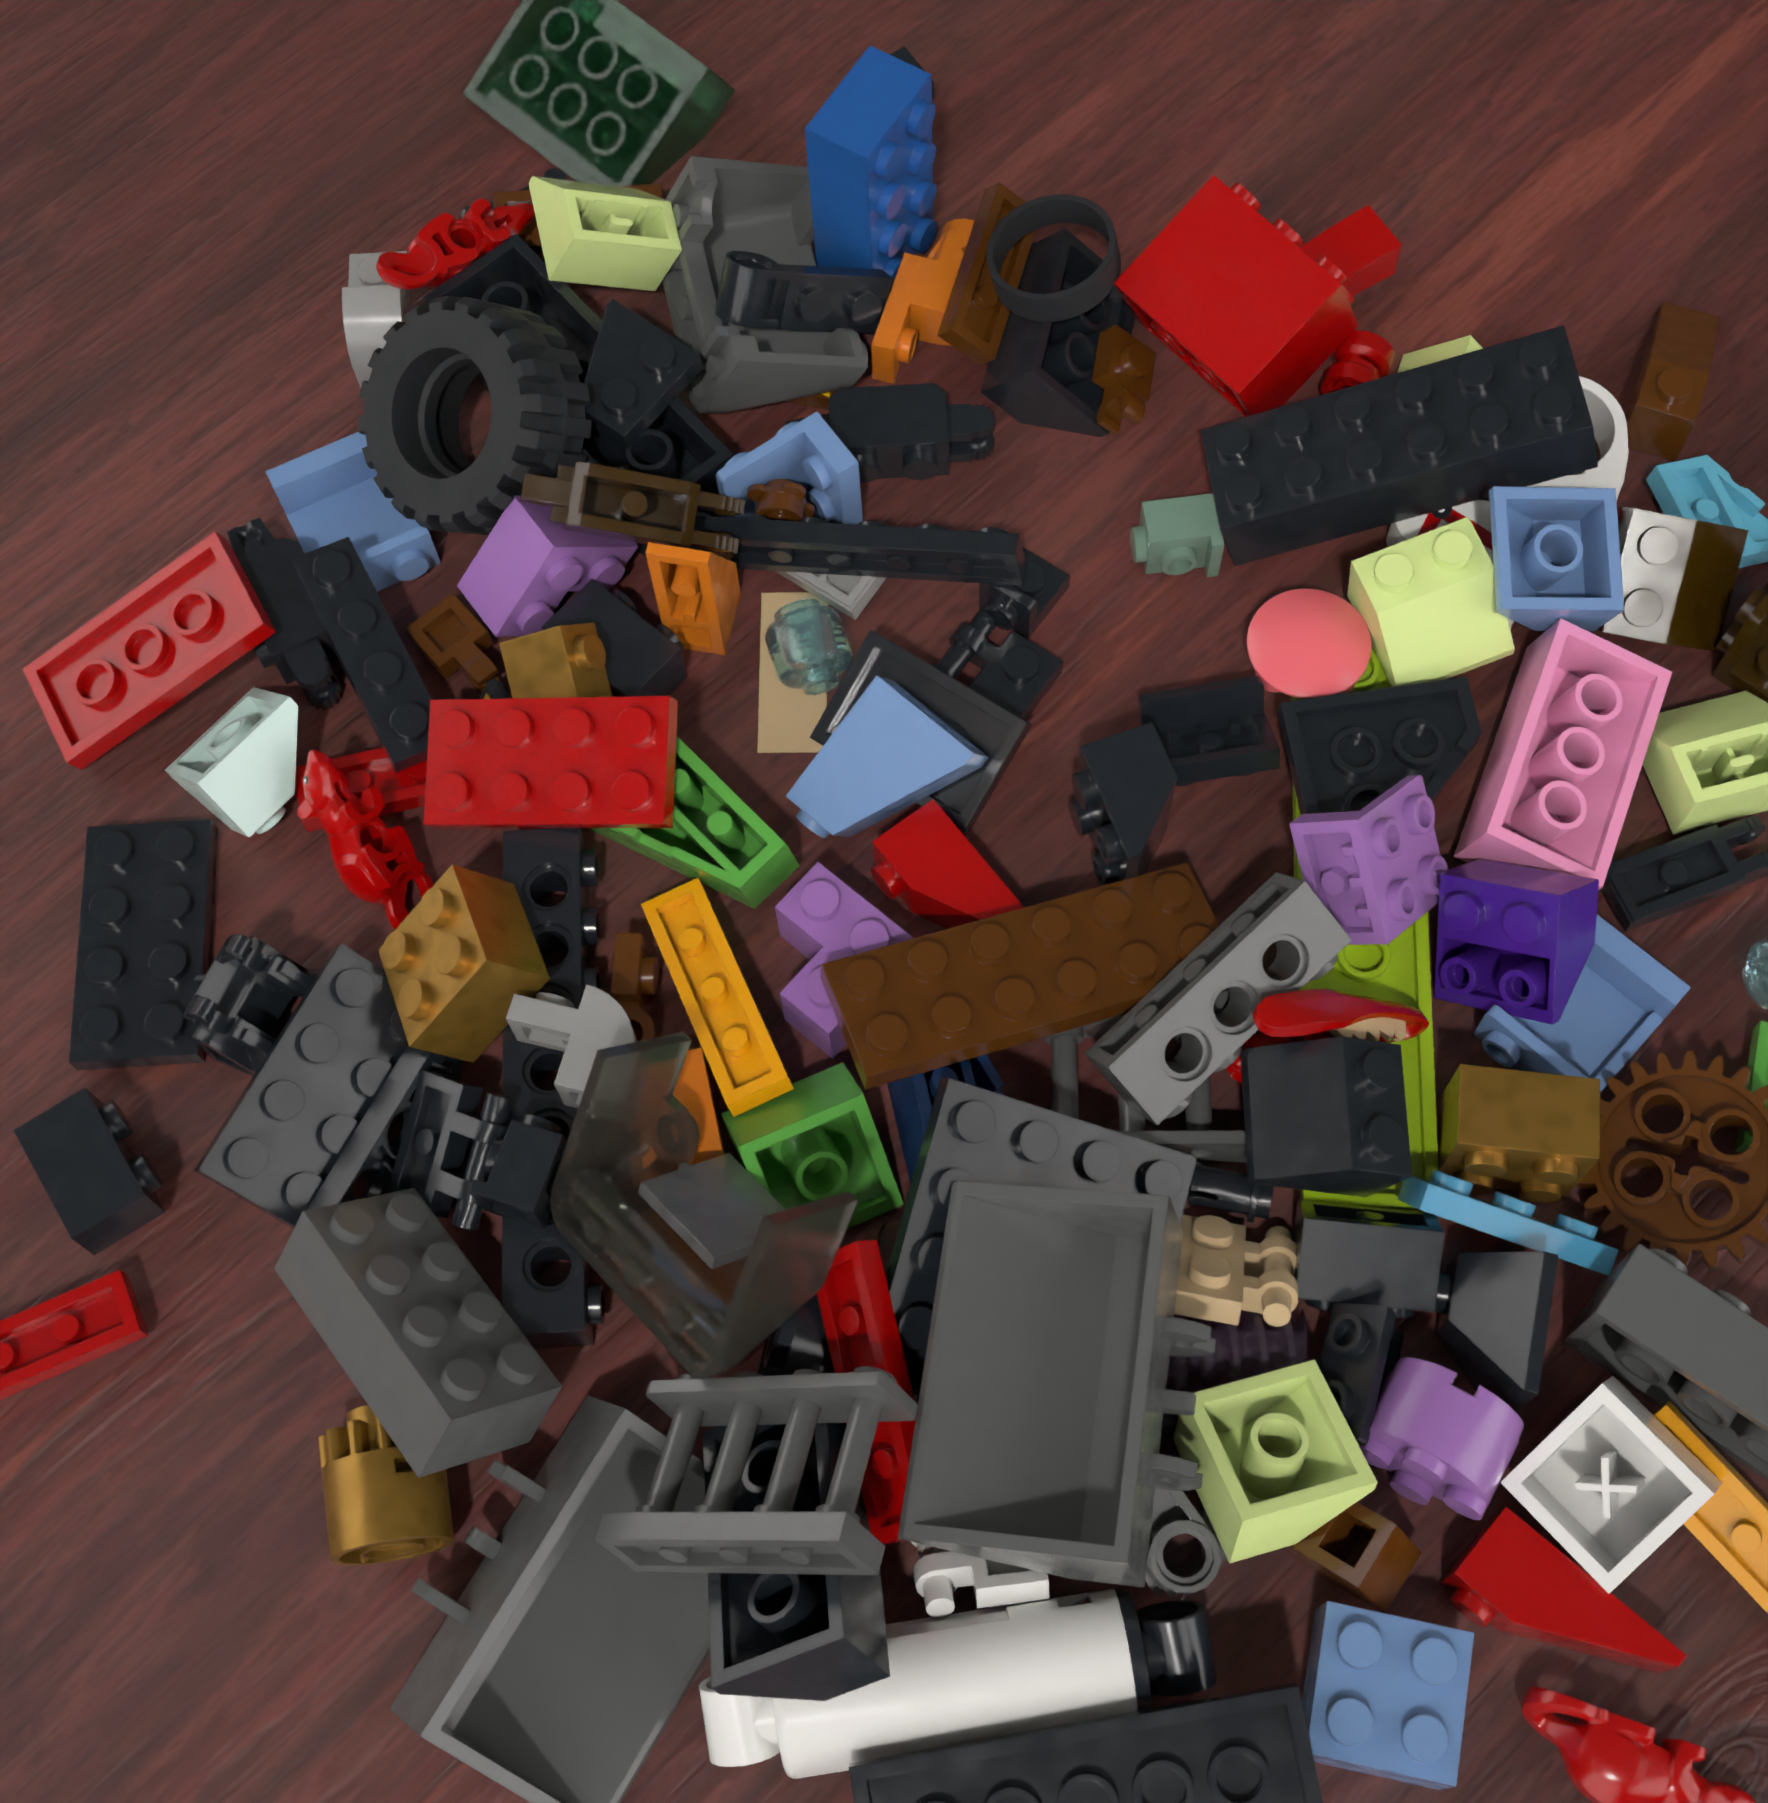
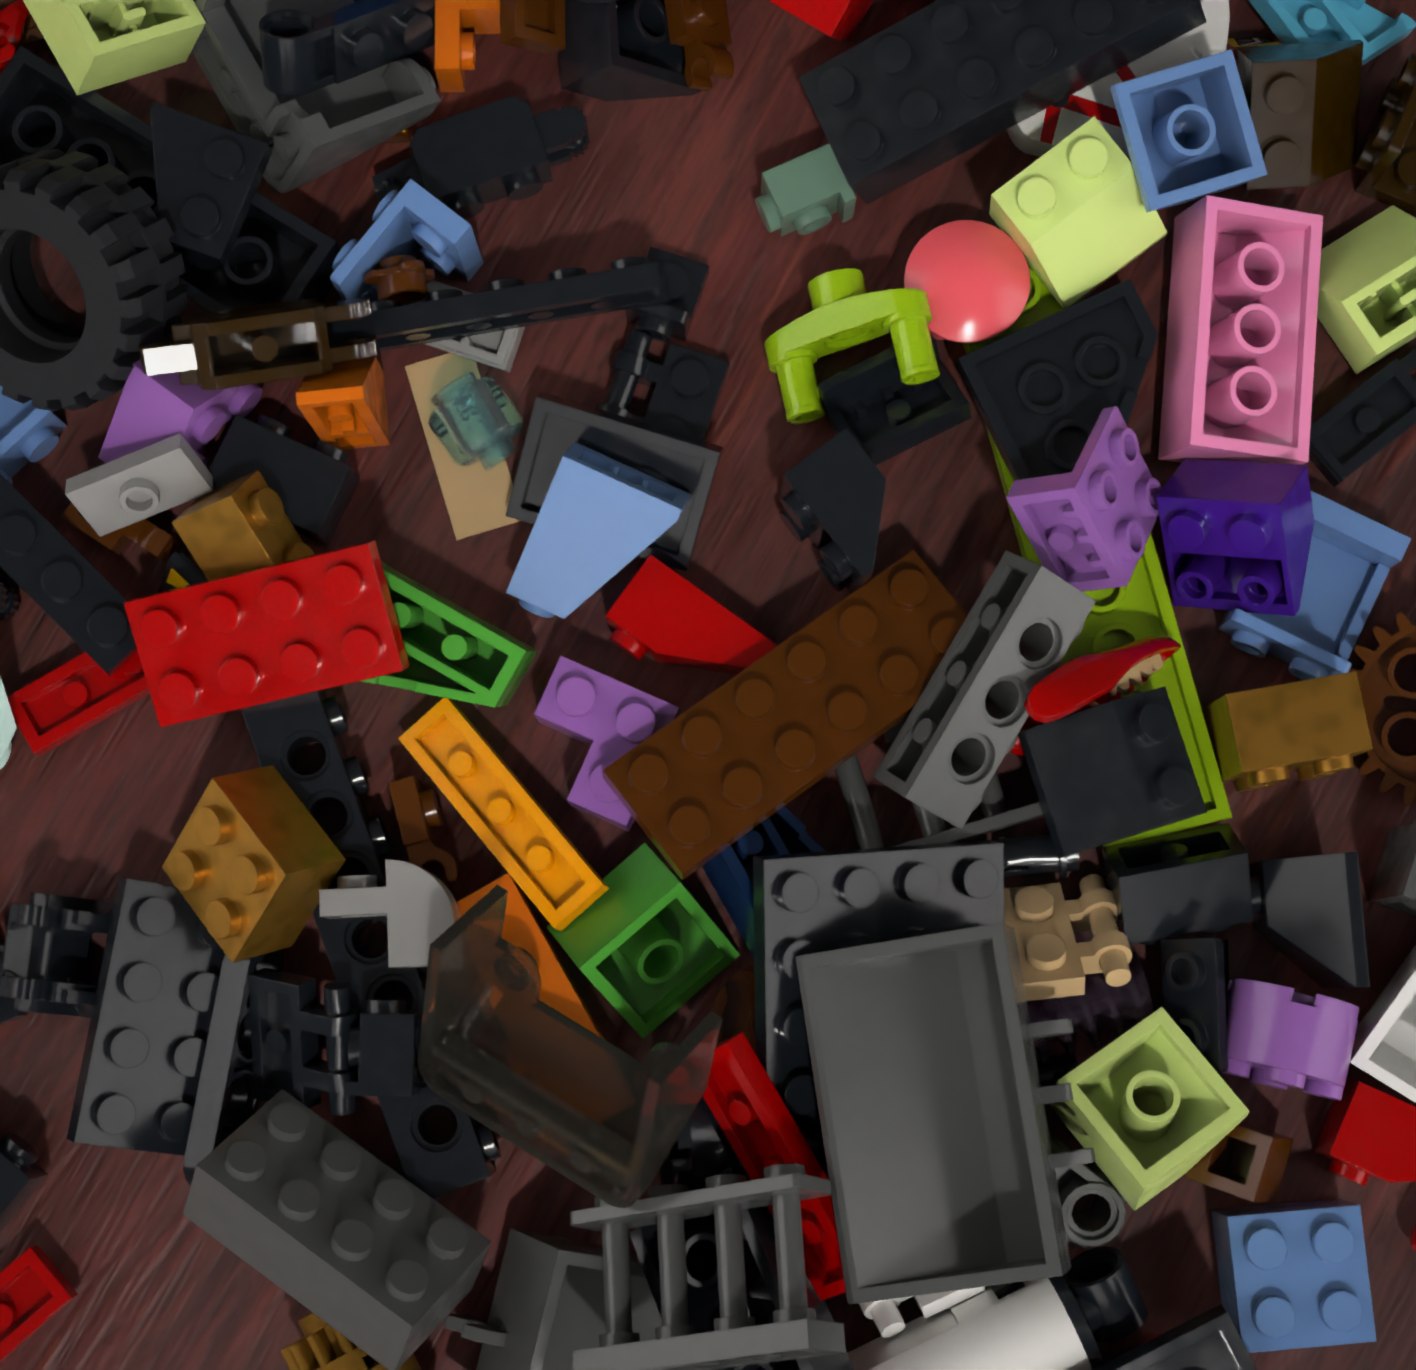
camera: 20 degrees left, 15 degrees up
(366, 853) = (111, 768): red animal -> none
(483, 609) = (139, 485): none -> light grey plate
(712, 1207) = (584, 1038): flat silver piece -> none
(1181, 648) = (841, 319): none -> lime connector
(1509, 1220) = (1299, 816): dark azure plate -> none

